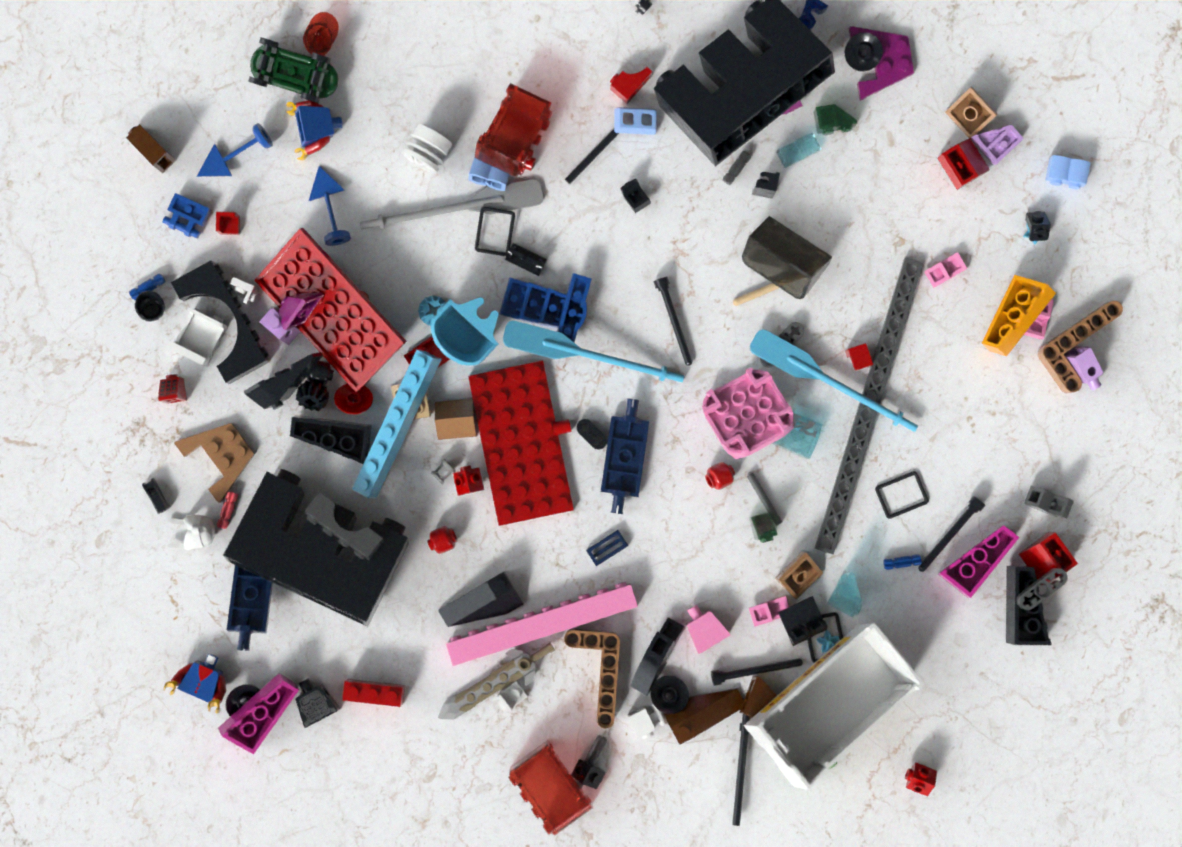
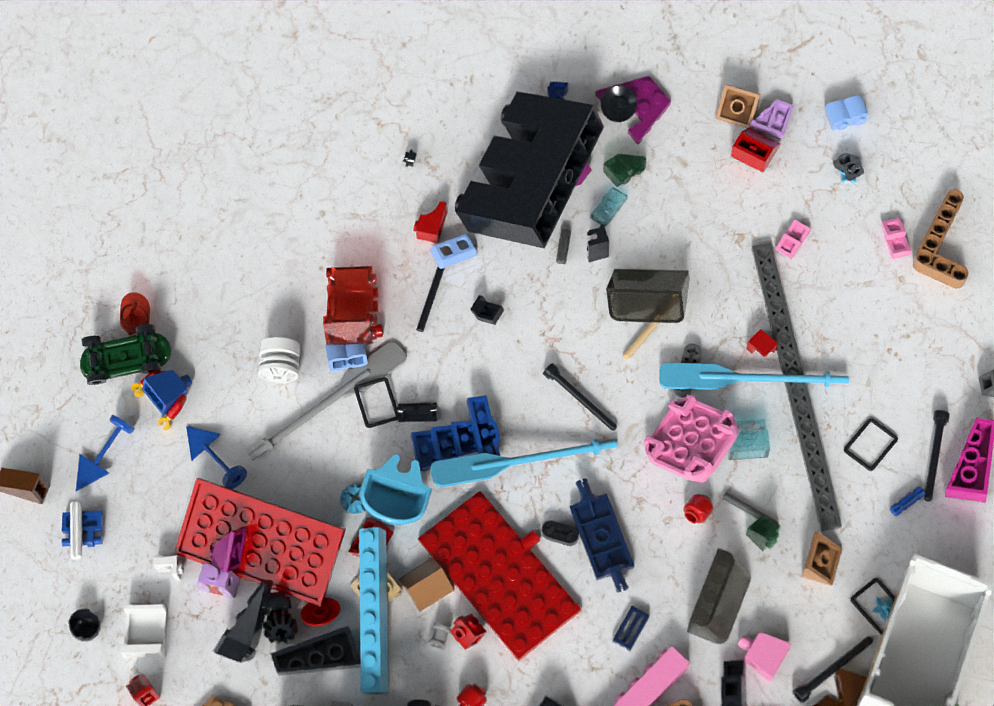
camera: 20 degrees left, 20 degrees down
(148, 285) = (81, 600): blue axle -> none
(179, 216) = (76, 530): none -> white axle
(227, 223) = (125, 515): red panel -> none
(247, 352) = (131, 577): black arch -> none
(694, 564) = (720, 599): none -> clear smoke windscreen
(768, 610) = (814, 606): bright pink slope -> none
(802, 621) = (850, 599): black hinge -> none
(846, 595) = (875, 553): clear light blue slope -> none
(1016, 313) = (875, 241): light orange wedge -> none
(1085, 365) = (961, 252): lavender torso -> none

